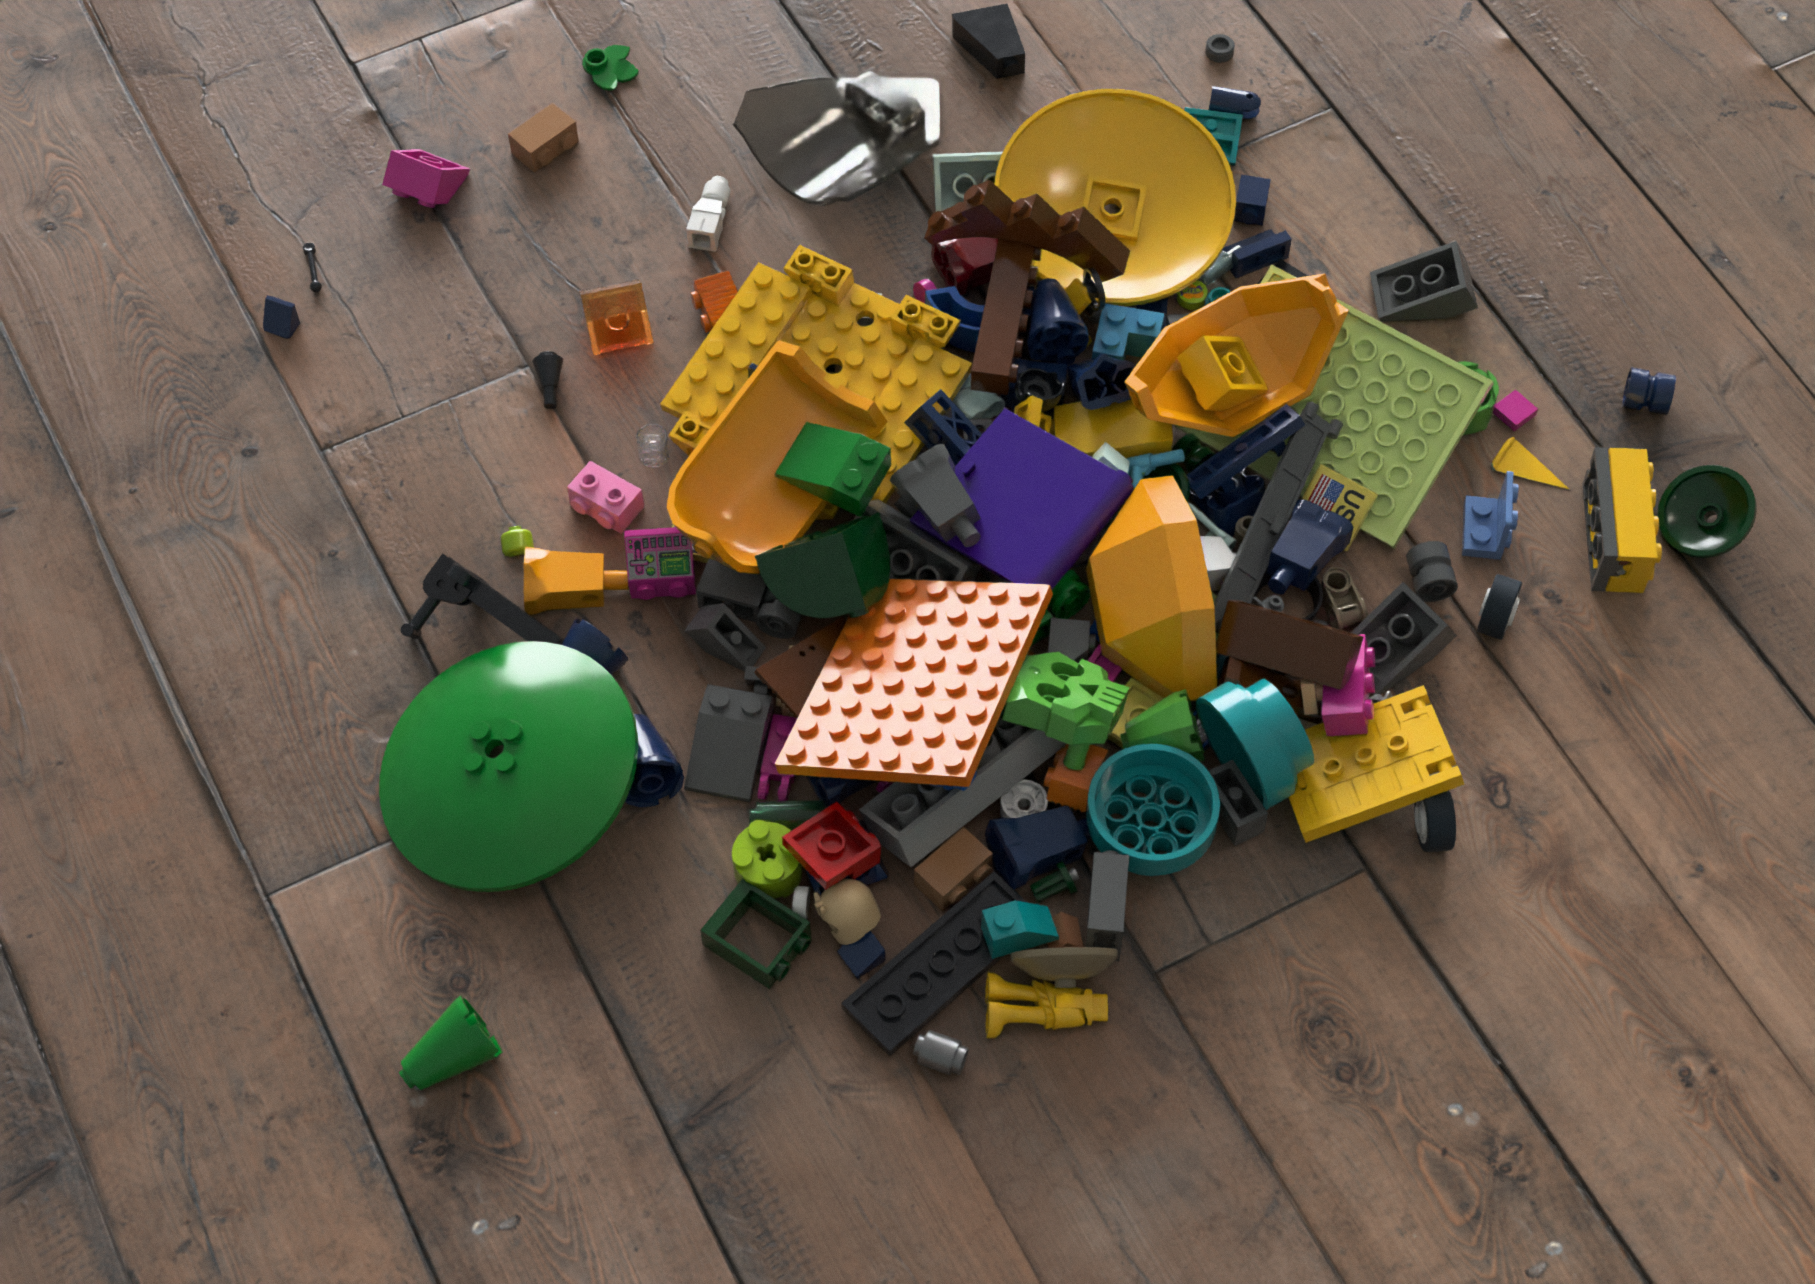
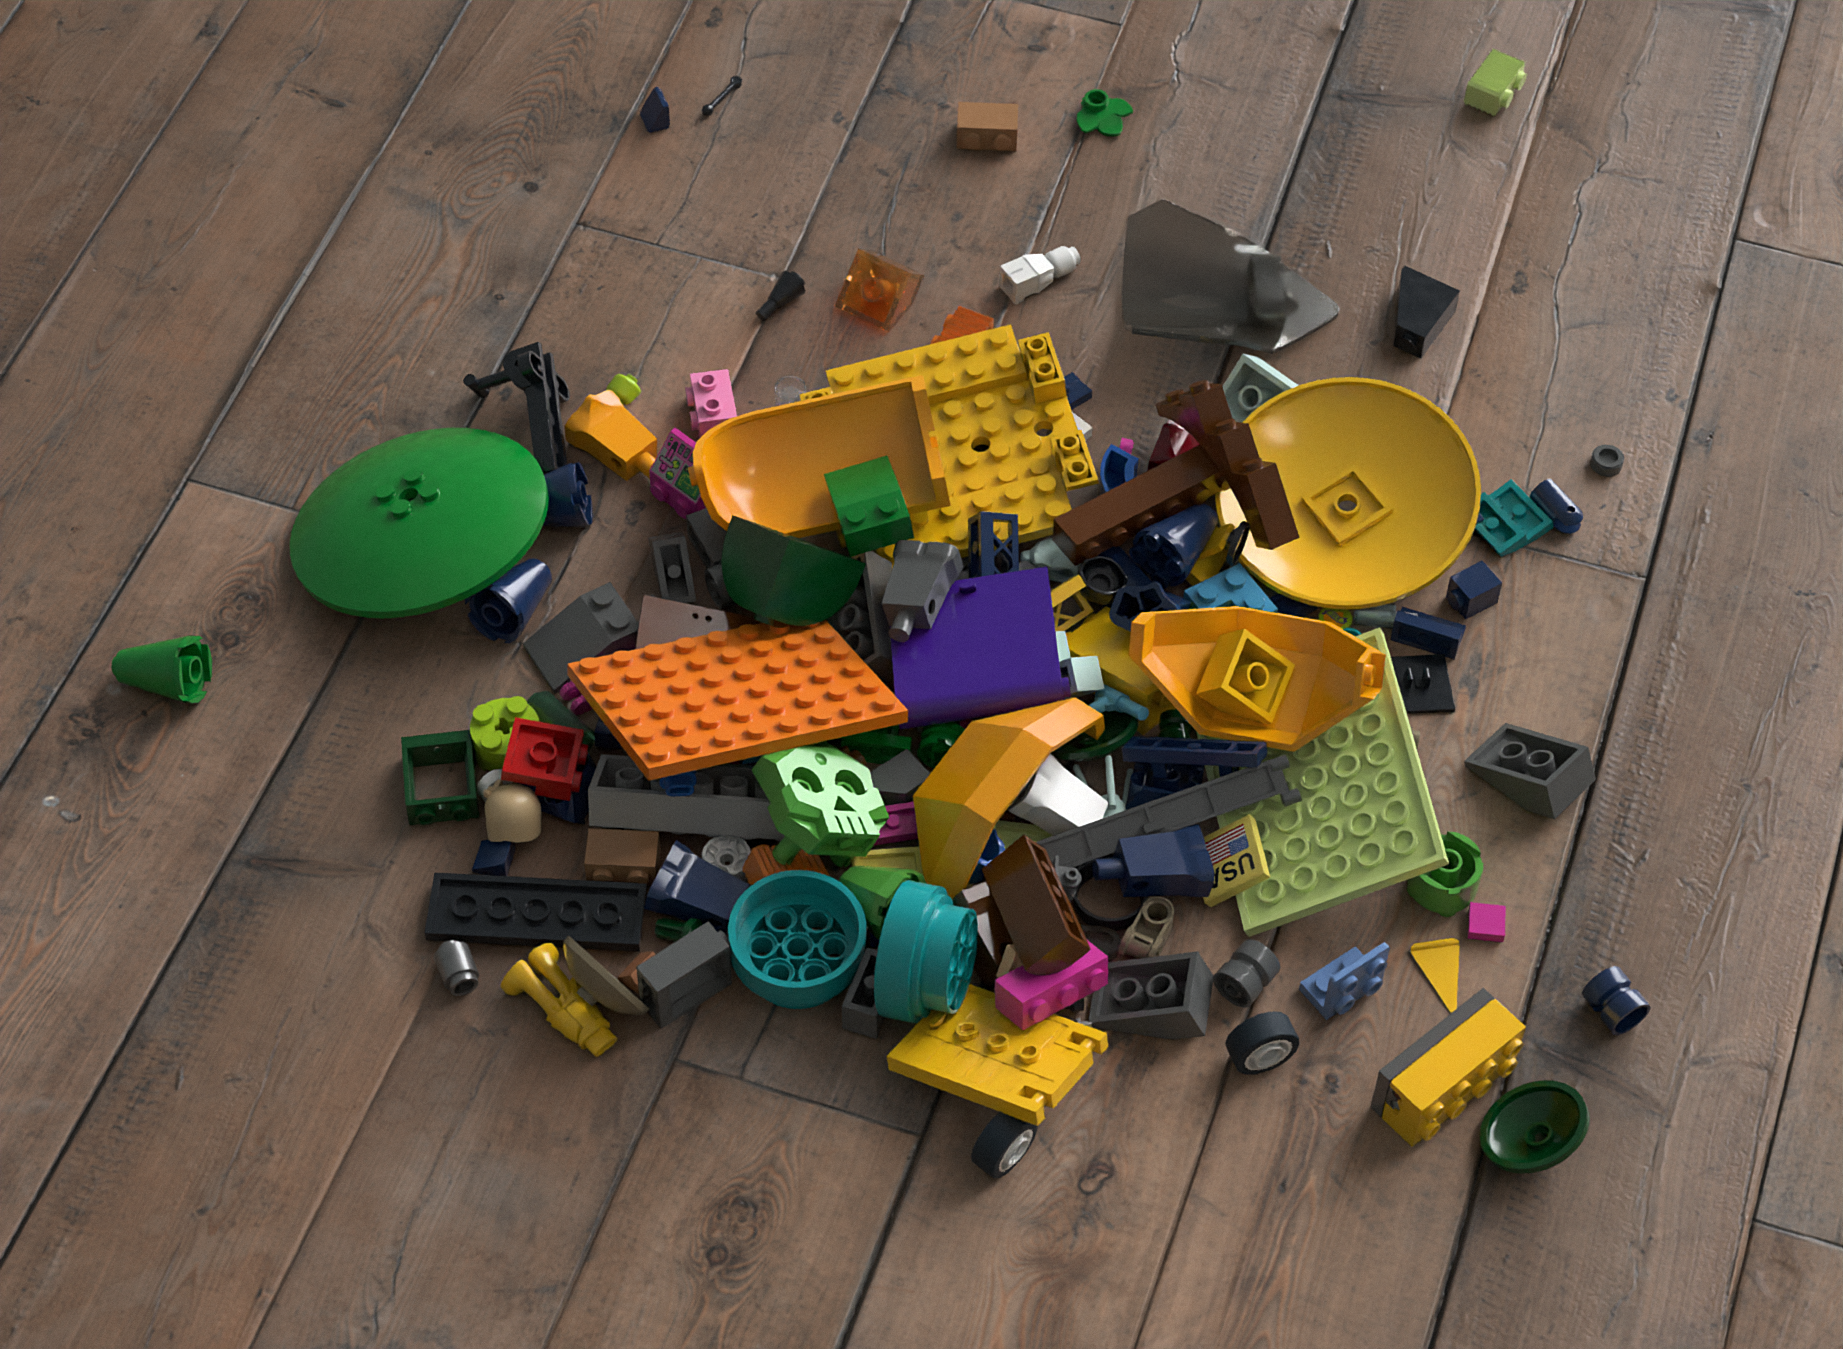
camera: 45 degrees right, 5 degrees down
(423, 176) = (870, 89): dark pink slope -> none
(1017, 927) = (605, 929): teal slope -> none

